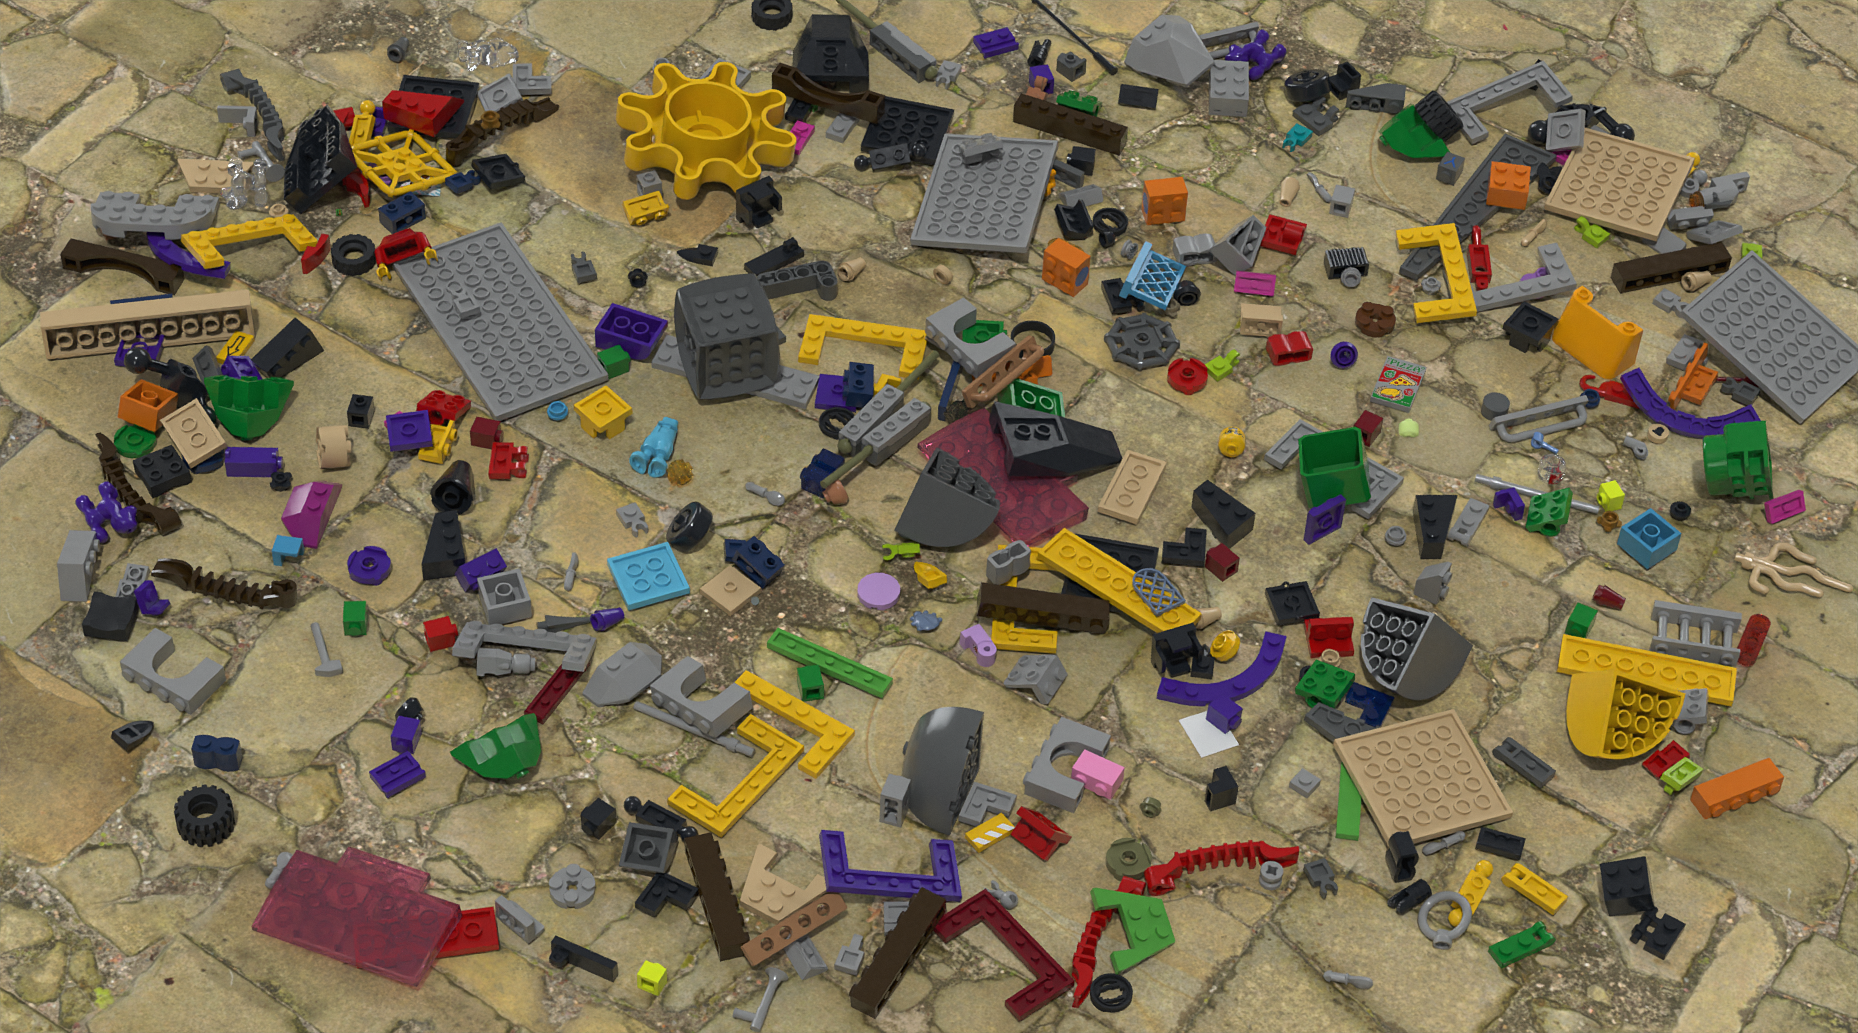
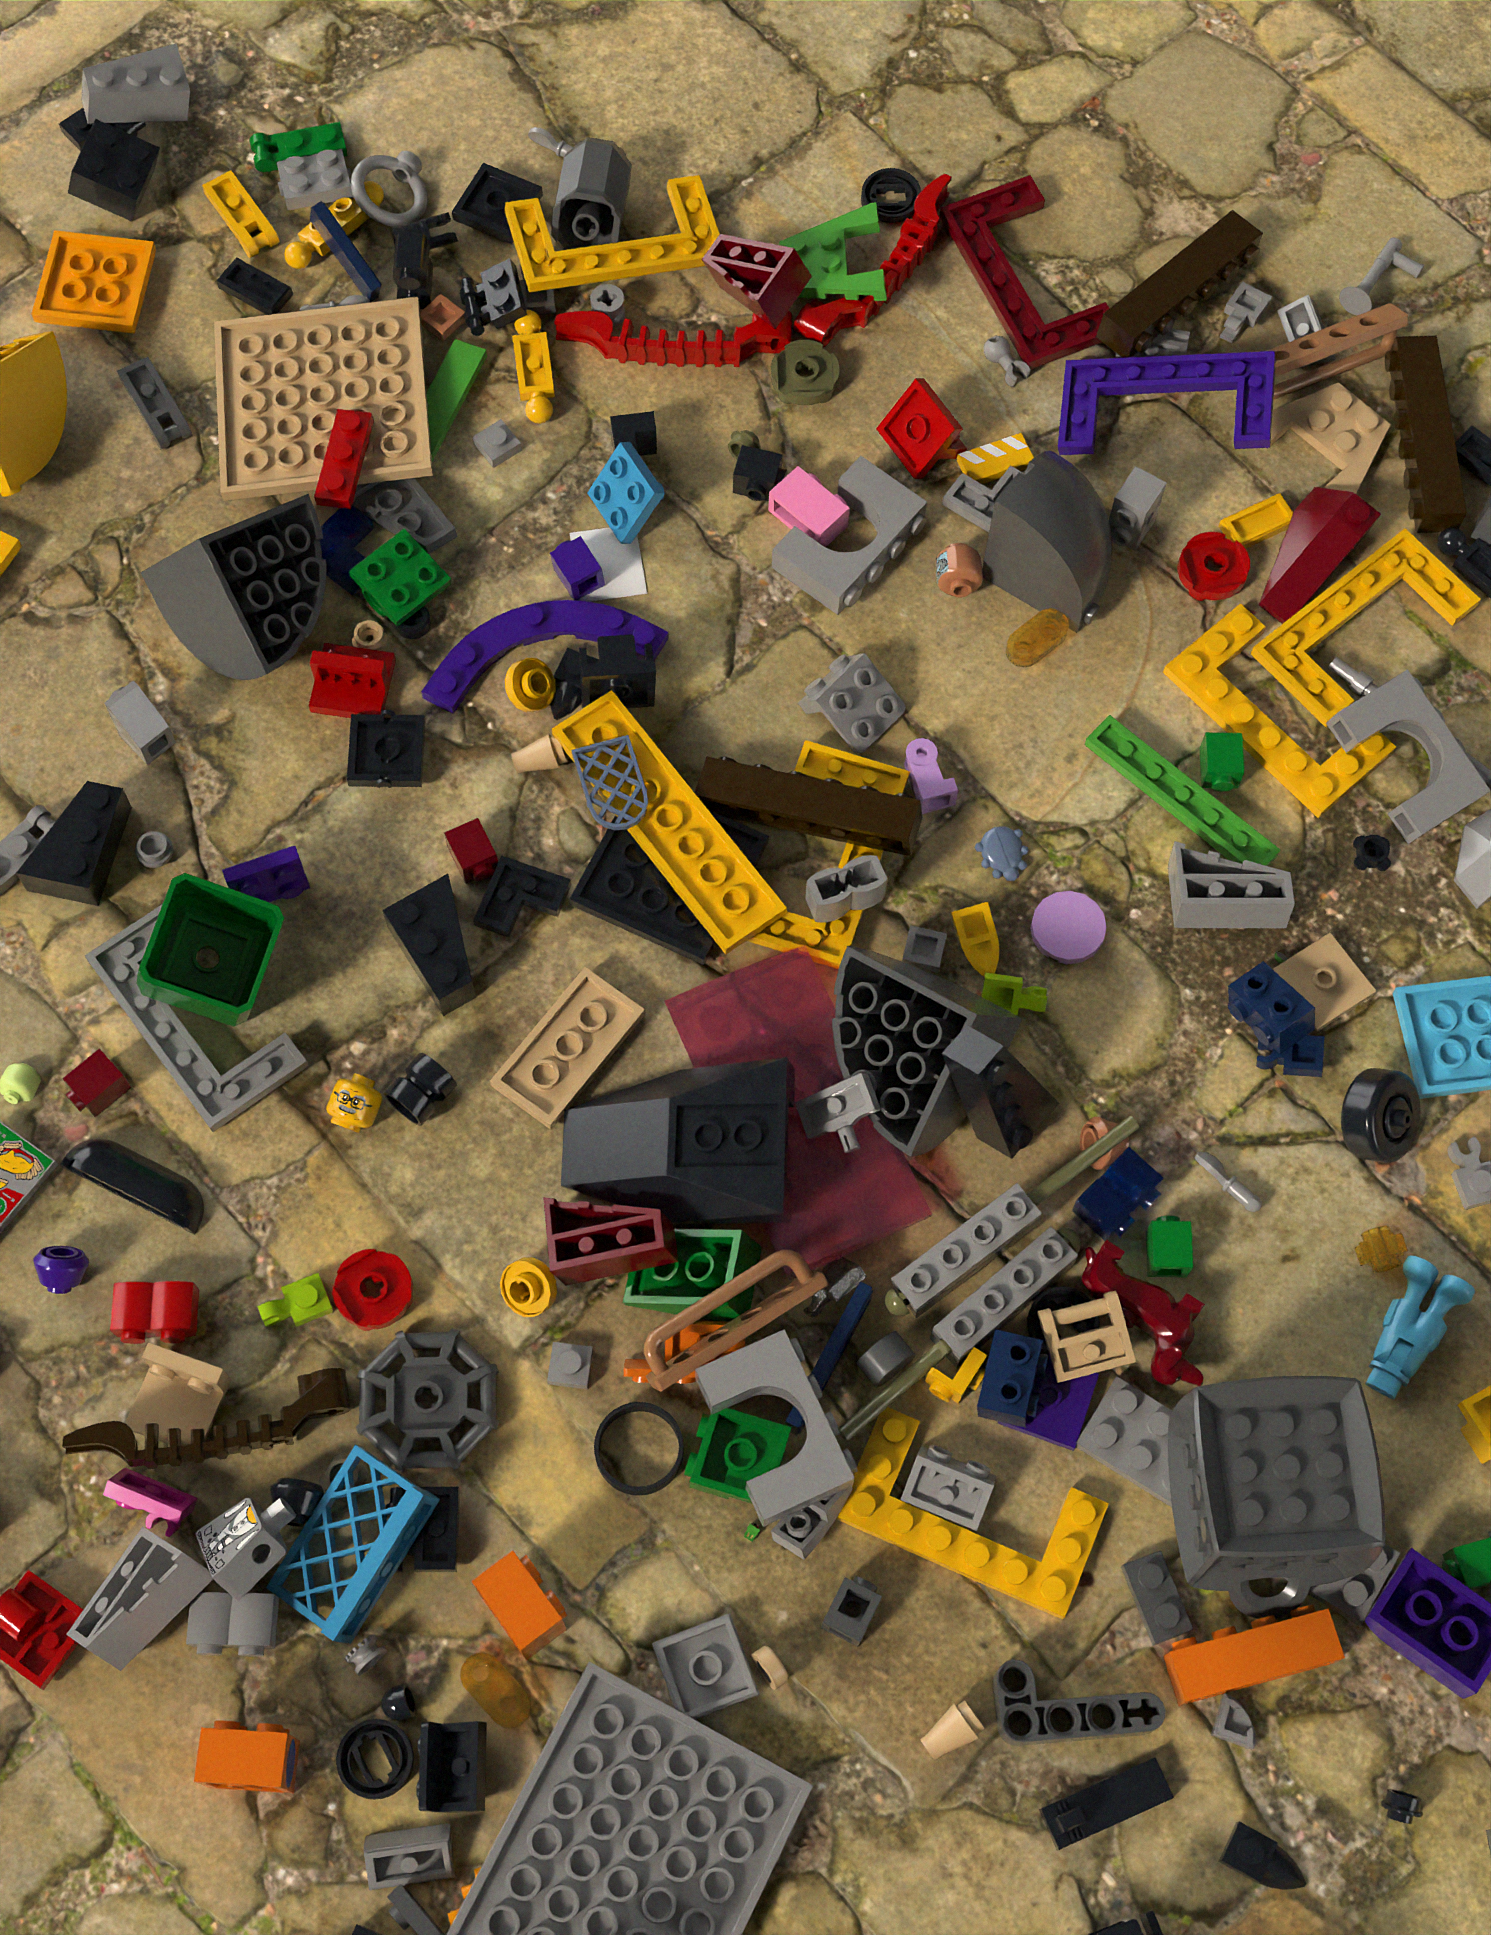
camera: 165 degrees left, 20 degrees up
(712, 657) = (1374, 843): none -> black plate
(774, 814) = (1314, 546): none -> dark red wedge
(790, 455) = (1169, 1247): none -> green brick
(794, 611) = (1227, 893): none -> light grey wedge
(795, 428) = (1150, 1310): none -> dark red animal
(809, 830) = (1258, 521): none -> yellow tile
(825, 404) = (1088, 1350): none -> tan plate
(837, 803) = (1208, 584): none -> red plate
(877, 351) = (949, 1486): none -> light grey bracket
(898, 477) = (997, 1092): none -> black wedge
(911, 302) = (852, 1628): none -> dark grey brick
(923, 386) = (886, 1359): none -> dark grey piece
(956, 563) = (924, 948): none -> light grey plate
(972, 270) = (706, 1668): none -> light grey plate
(978, 461) = (839, 1109): none -> light grey plate
(994, 755) = (960, 569): none -> nougat head
(1078, 366) = (570, 1365): none -> light grey plate
(1080, 401) = (605, 1240): none -> dark red wedge
(1110, 385) = (528, 1287): none -> yellow plate
(1134, 788) = (757, 473): none -> black brick
(1180, 890) = (758, 275): none -> dark red wedge
(1193, 329) = (320, 1394): none -> dark brown piece
(1200, 451) = (419, 1090): none -> black wheel
(1202, 263) = (244, 1543): none -> light grey torso
(1210, 753) = (626, 492): none -> dark azure plate
(1229, 924) = (558, 269): none -> yellow plate
(1301, 828) = (533, 367): none -> yellow plate
(1308, 930) = (591, 194): none -> dark grey brick
(1327, 396) = (137, 1181): none -> black brick
(1340, 863) = (503, 296): none -> black plate
(1371, 928) = (485, 198): none -> black plate
(1373, 847) = (442, 317): none -> nougat plate
(1388, 732) = (344, 459): none -> red plate
(1451, 861) = (345, 251): none -> dark blue tile
(1498, 917) = (314, 179): none -> light grey plate
(1602, 826) = (94, 282): none -> light orange plate
(1640, 940) = (137, 88): none -> light grey wedge

